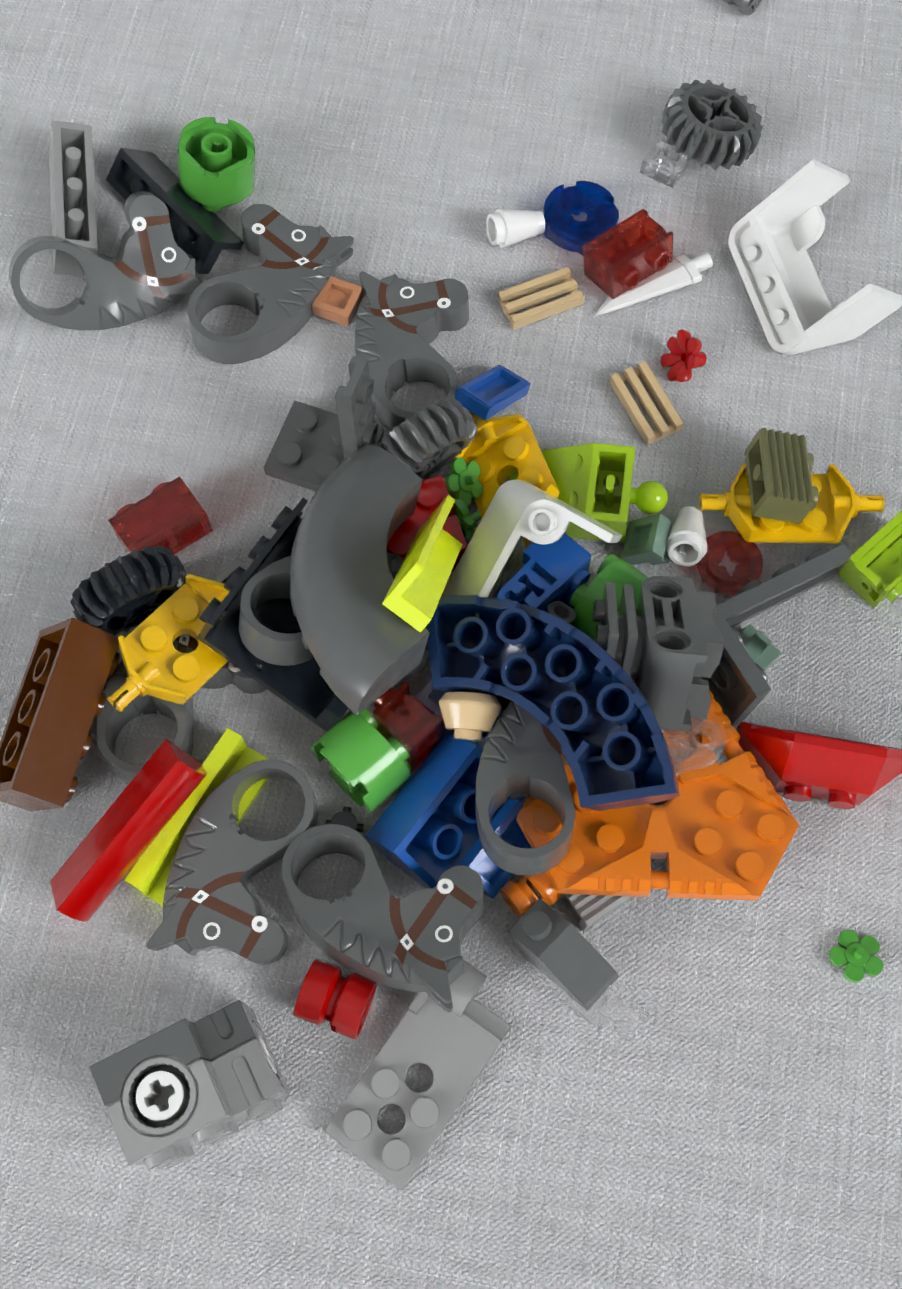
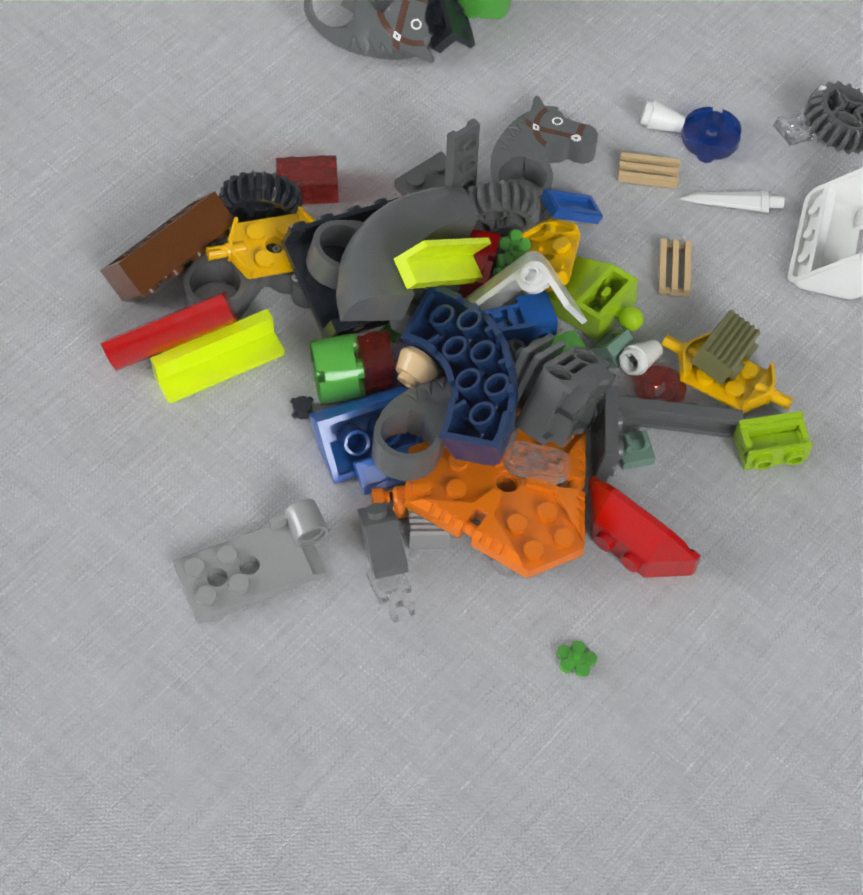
camera: 30 degrees right, 10 degrees down
(189, 1086) = (113, 480): piece -> none
(207, 884) = (210, 381): dark grey animal -> none
(281, 290) = (475, 83): dark grey animal -> none
(335, 998) = (227, 488): red wheel -> none
(338, 301) = (510, 106): nougat plate -> none
(390, 940) = (278, 462): dark grey animal -> none
(627, 254) = (725, 169): clear red hinge -> none
(683, 357) = (720, 251): red plant -> none

